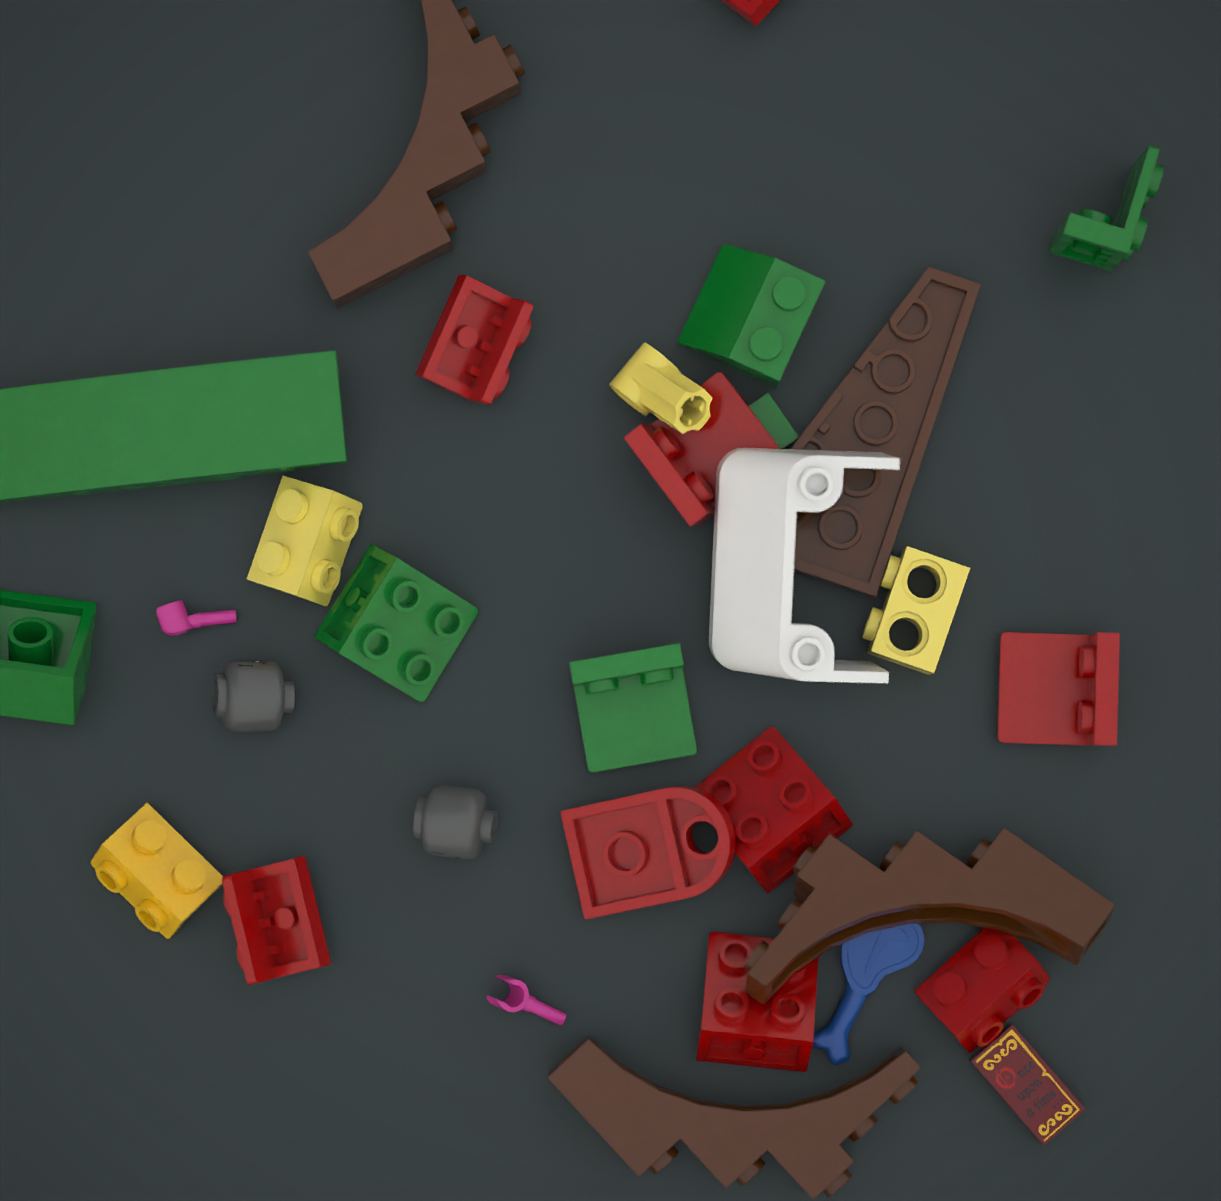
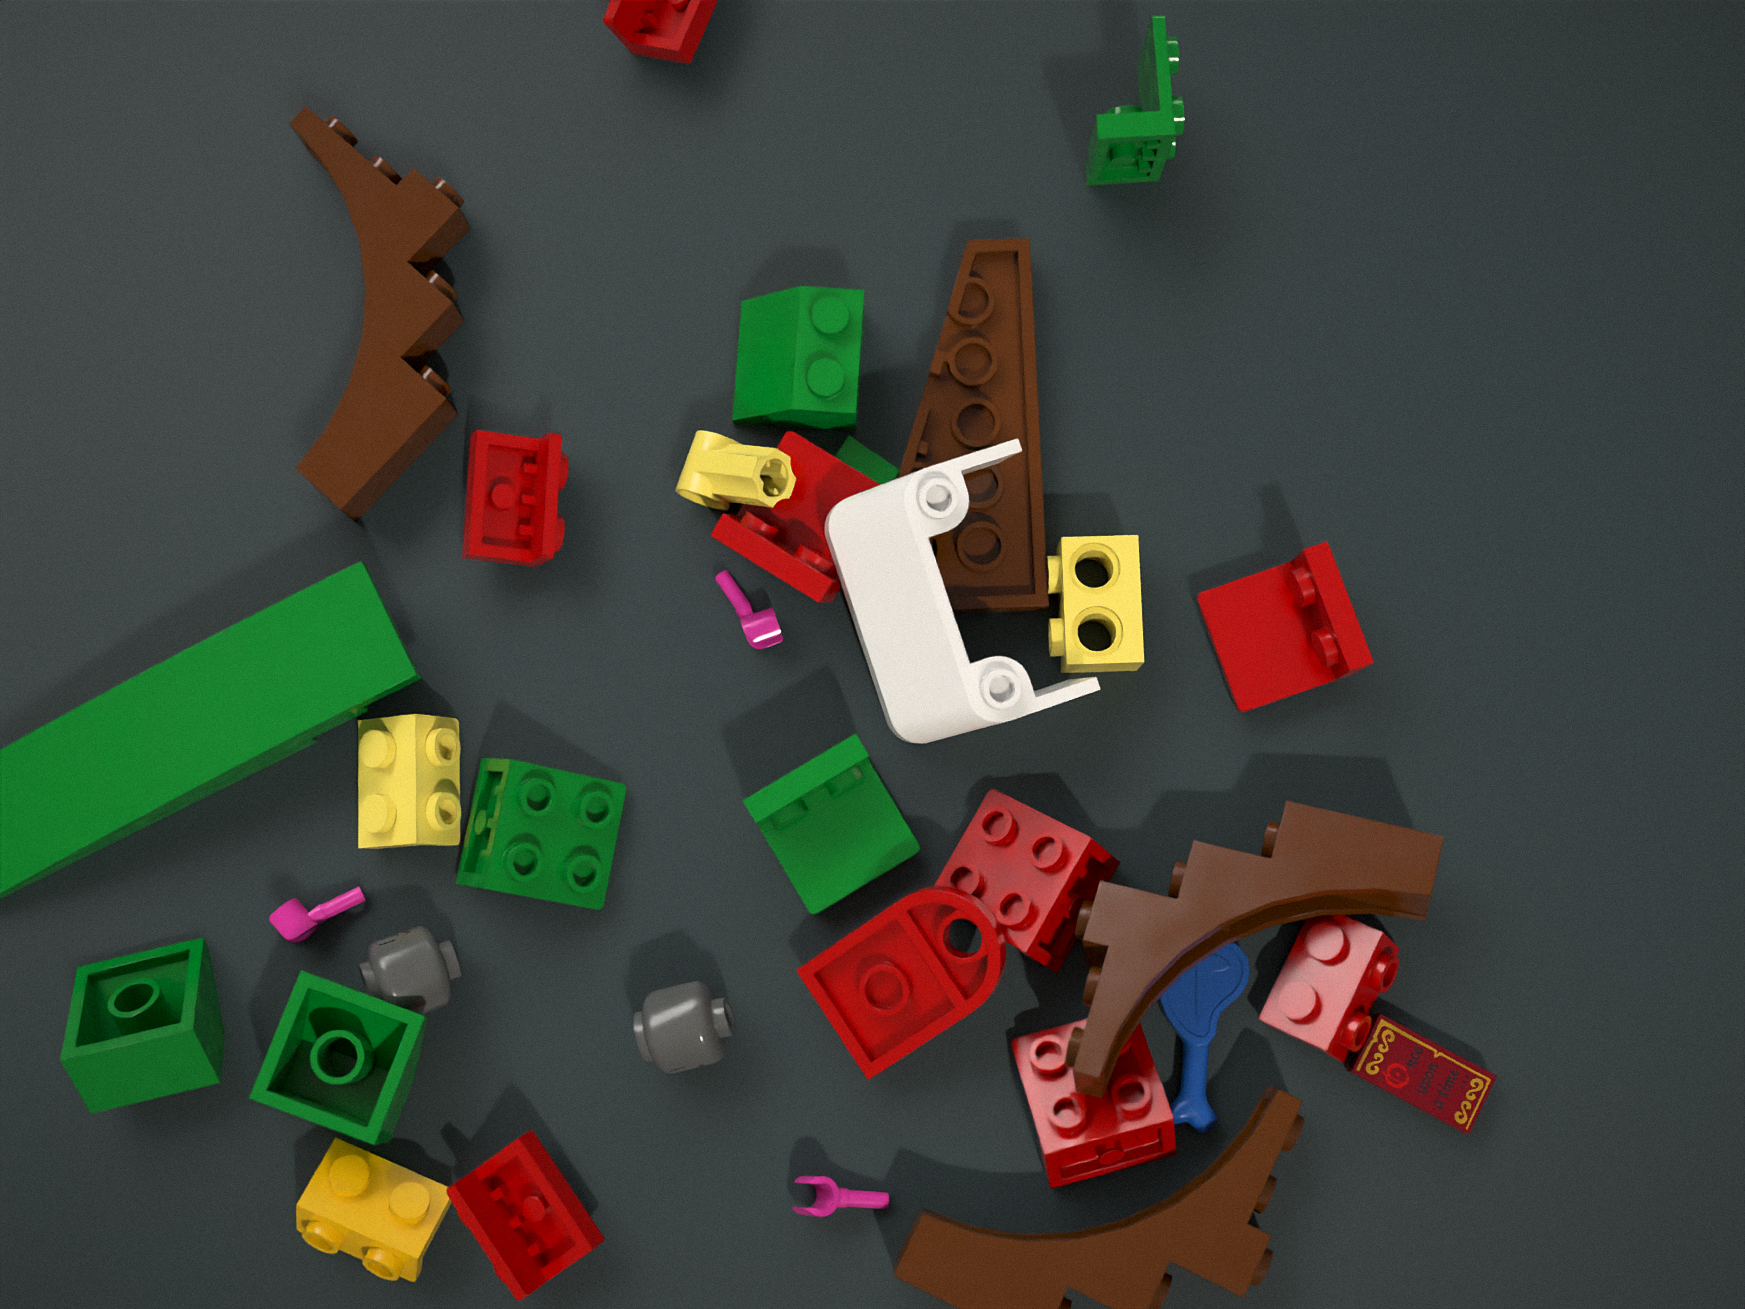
camera: 20 degrees left, 5 degrees down
(178, 743) = (342, 1059): none -> green slope
(634, 523) = (759, 627): none -> dark pink hand

